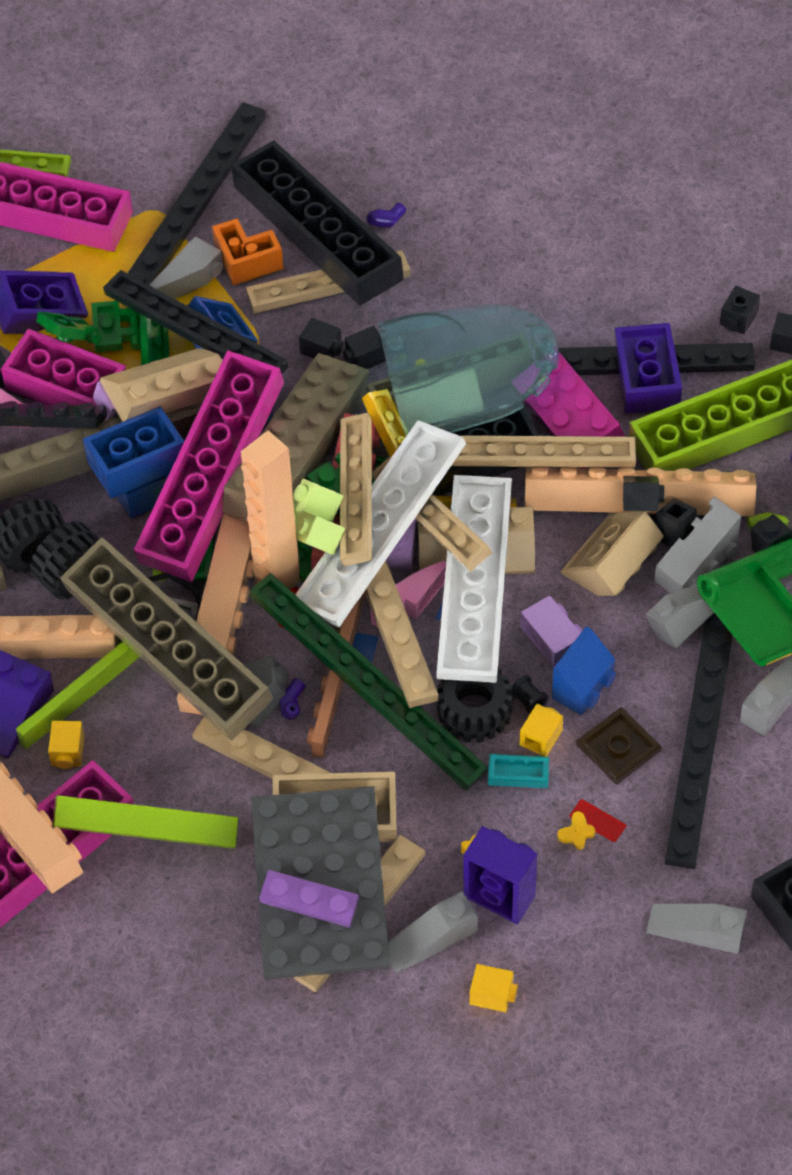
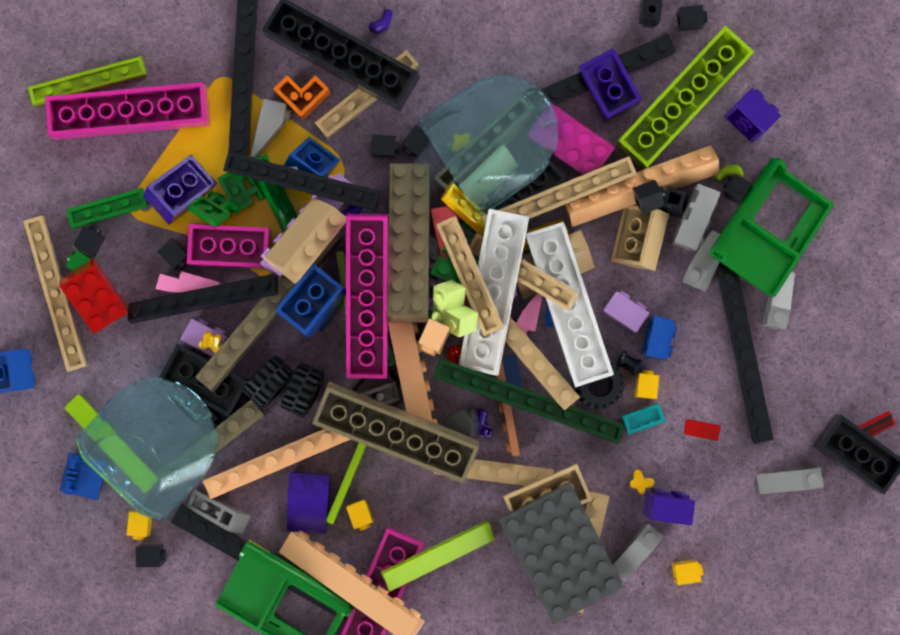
camera: 25 degrees left, 30 degrees up
(309, 898) = (562, 572): medium lavender plate -> none
(577, 832) = (694, 444): yellow piece -> none
(618, 745) = (695, 374): dark brown tile -> none

